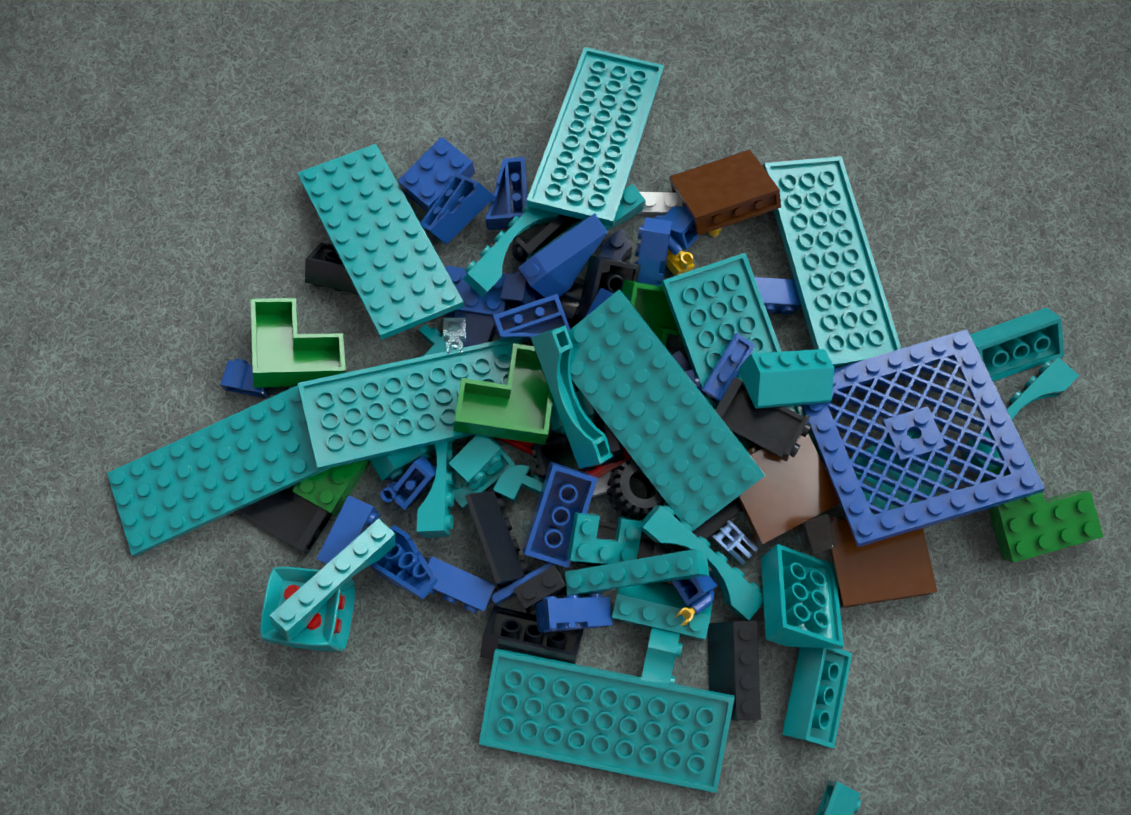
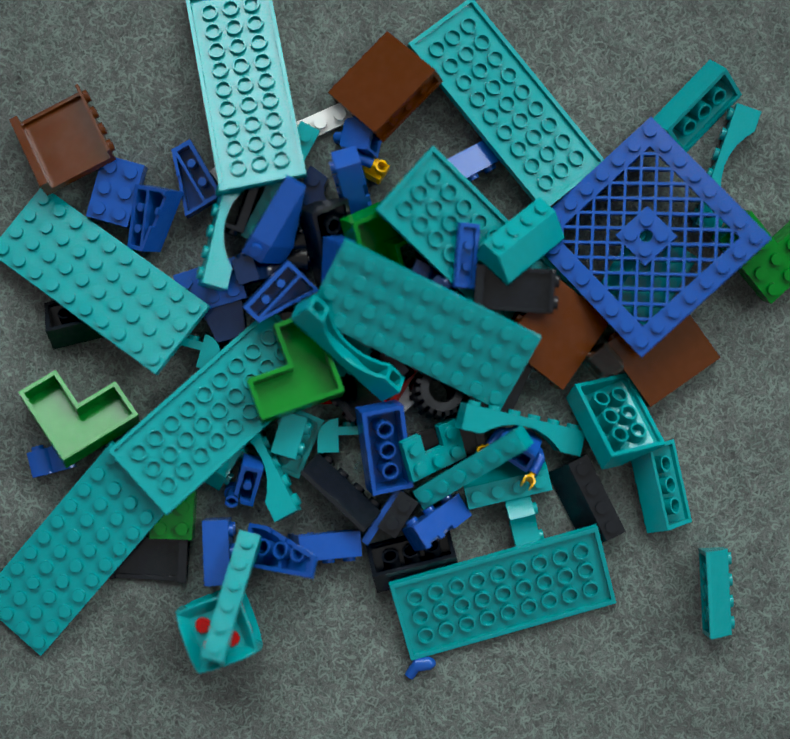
camera: 40 degrees left, 15 degrees up
(413, 113) = (64, 142): none -> reddish brown panel
(454, 333) = (213, 334): clear light blue plate -> none
(485, 753) = (421, 664): none -> blue arm
(733, 540) = (536, 396): light blue arm -> none

